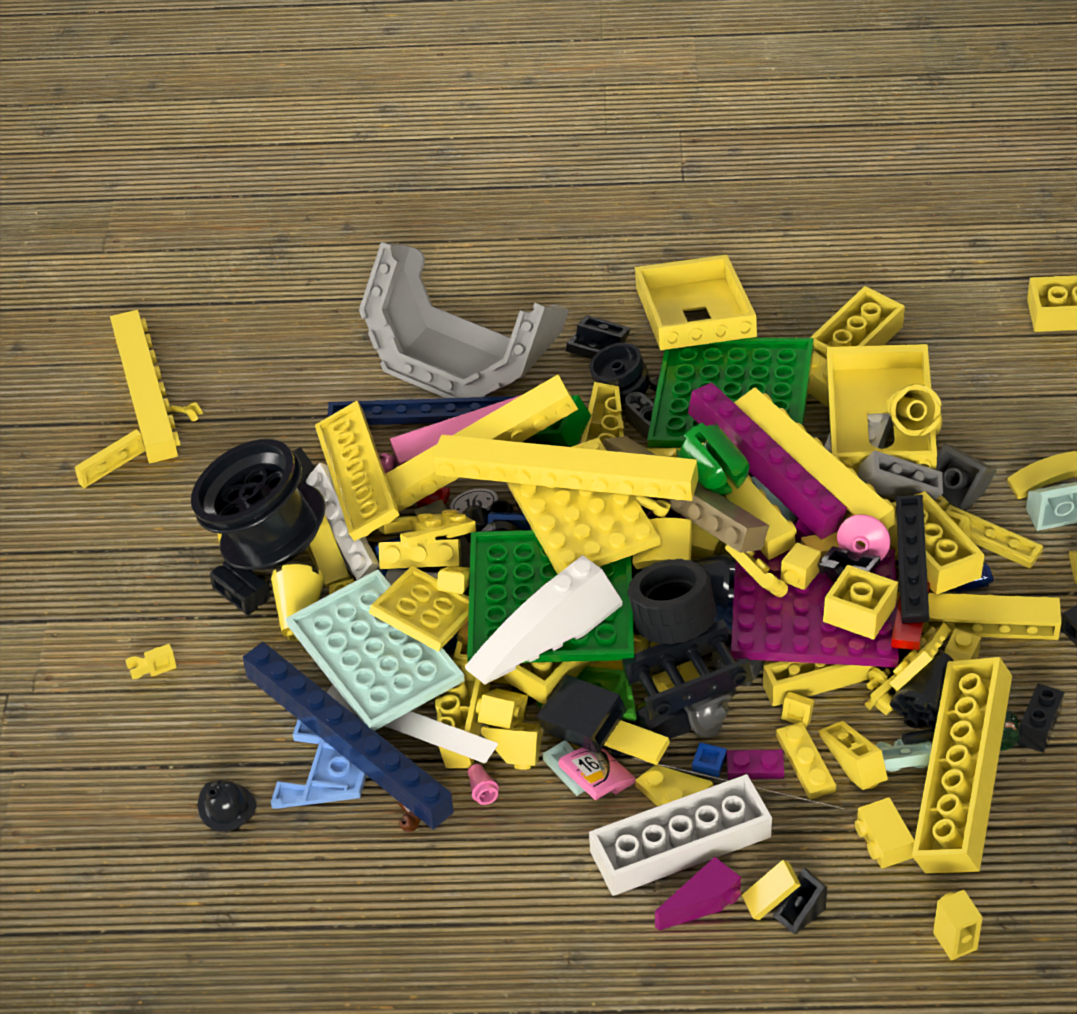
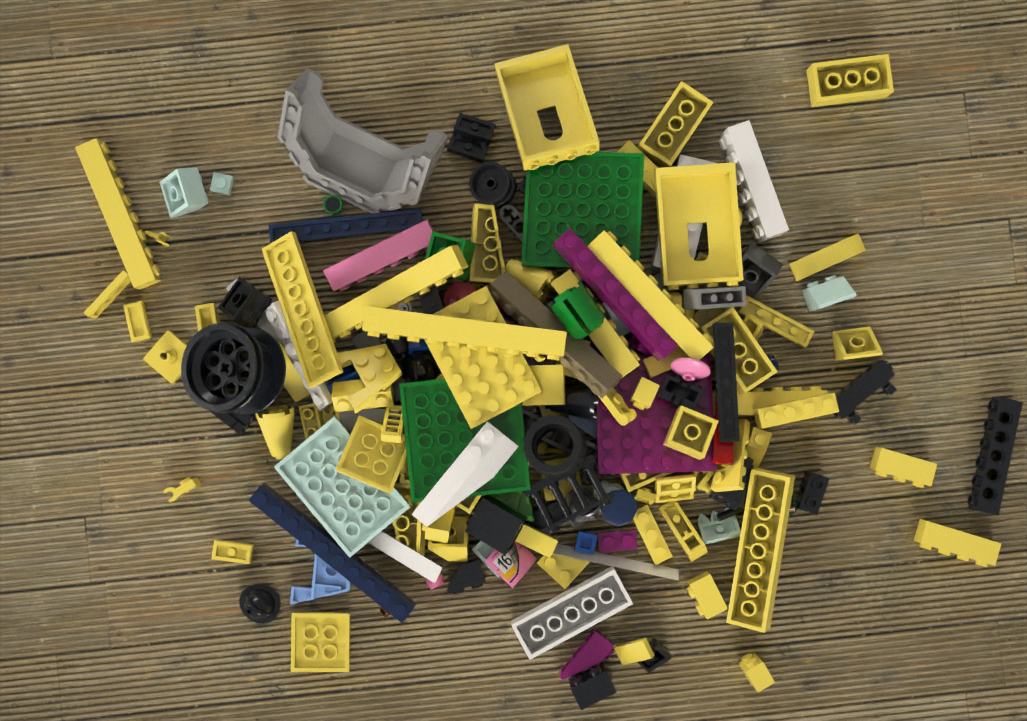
camera: 10 degrees left, 40 degrees up
(137, 491) = (137, 321): none -> light yellow tile
(170, 528) = (167, 356): none -> light yellow tile
(202, 739) = (232, 551): none -> light yellow plate
(229, 367) = (183, 191): none -> light aqua slope
(278, 367) = (221, 183): none -> light aqua plate
(305, 855) = (320, 641): none -> light yellow plate
(388, 462) = (324, 287): bright pink arm -> none
(413, 390) = (333, 204): none -> tile
(531, 786) = (467, 575): none -> black slope
(703, 924) = (591, 685): none -> black brick
(755, 711) = (623, 506): none -> dark blue piece
(840, 693) = (675, 488): none -> light yellow slope
(914, 409) = (724, 240): light yellow cone -> none
(959, 388) = (753, 182): none -> white brick
(1012, 606) = (795, 410): none -> light yellow brick

